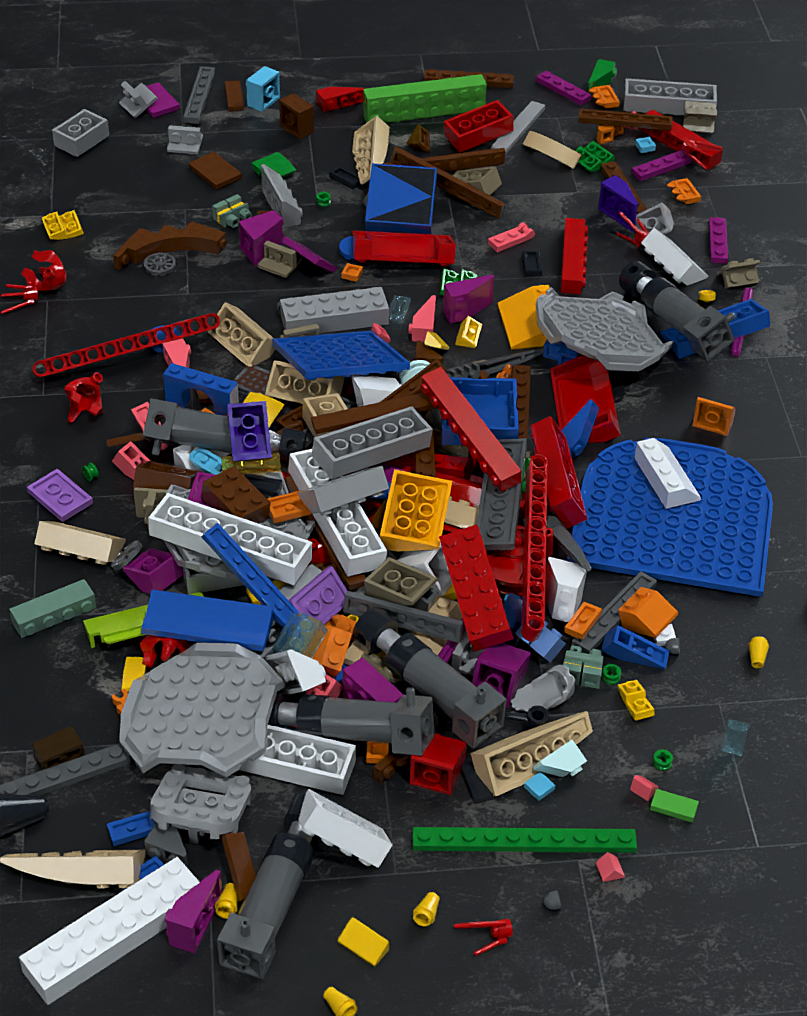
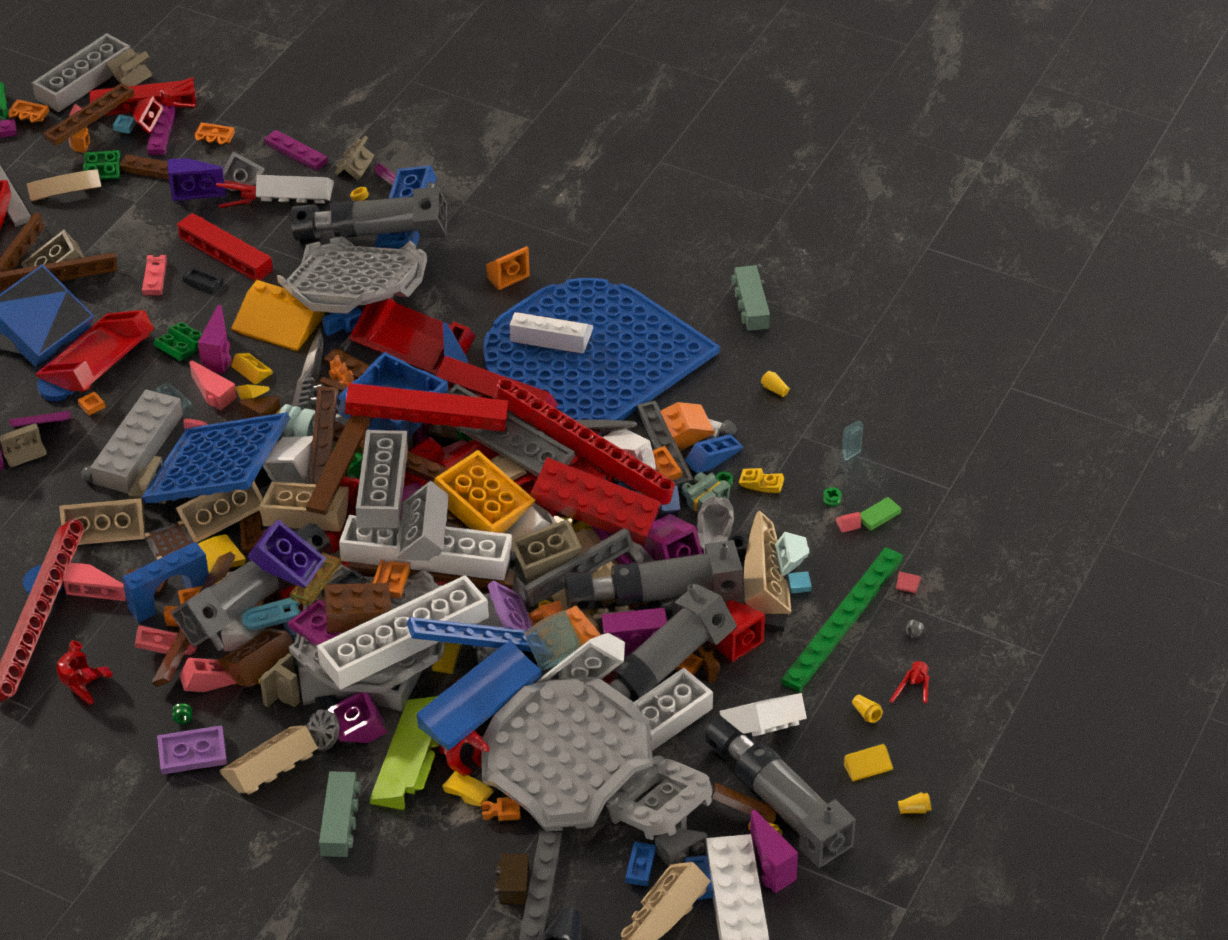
camera: 55 degrees left, 0 degrees up
(661, 148) = (147, 113): none -> red slope

